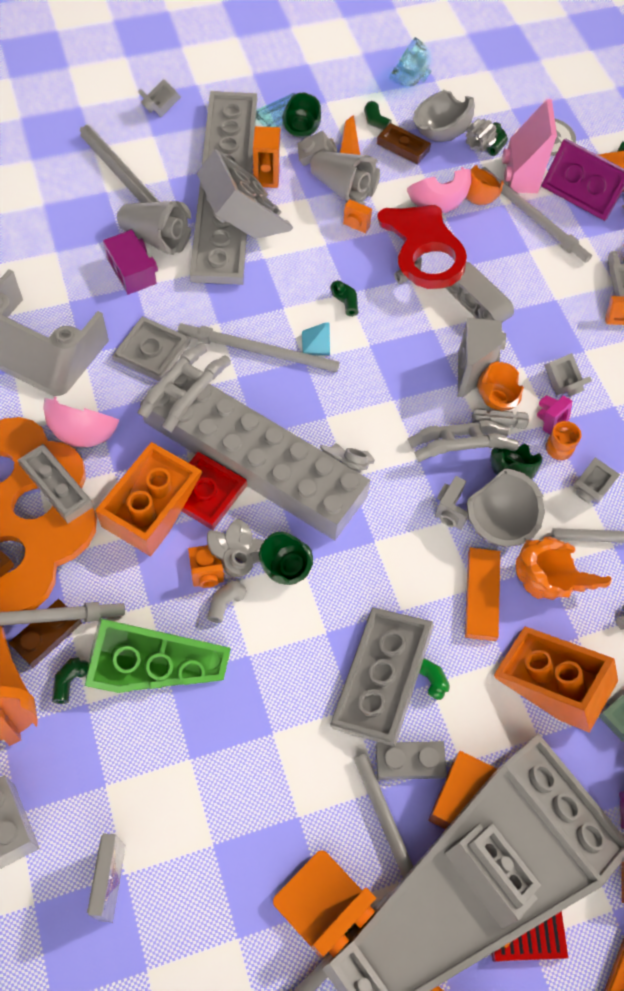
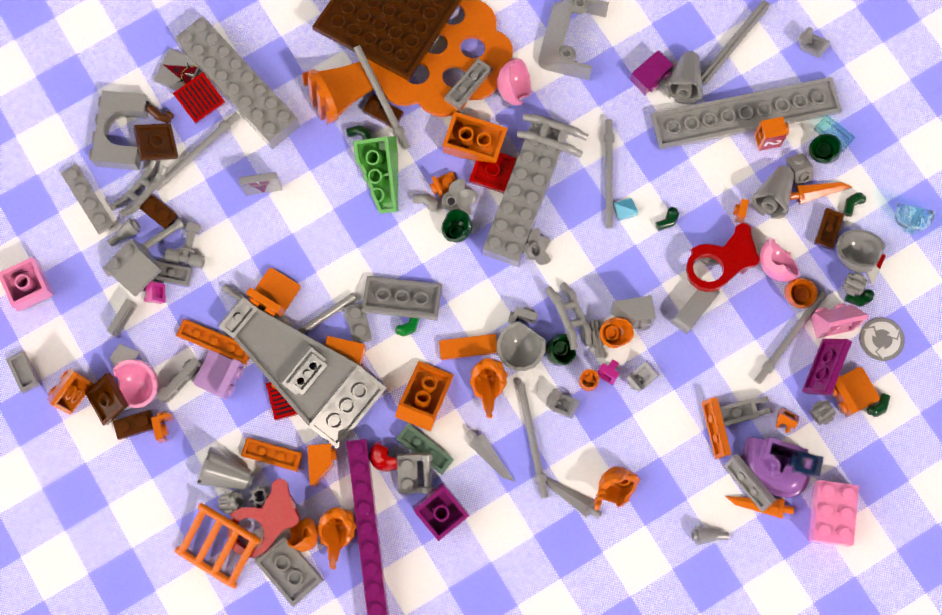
camera: 85 degrees right, 15 degrees up
(151, 348) = (589, 108): light grey tile -> none
(240, 198) = (722, 126): light grey wedge -> none

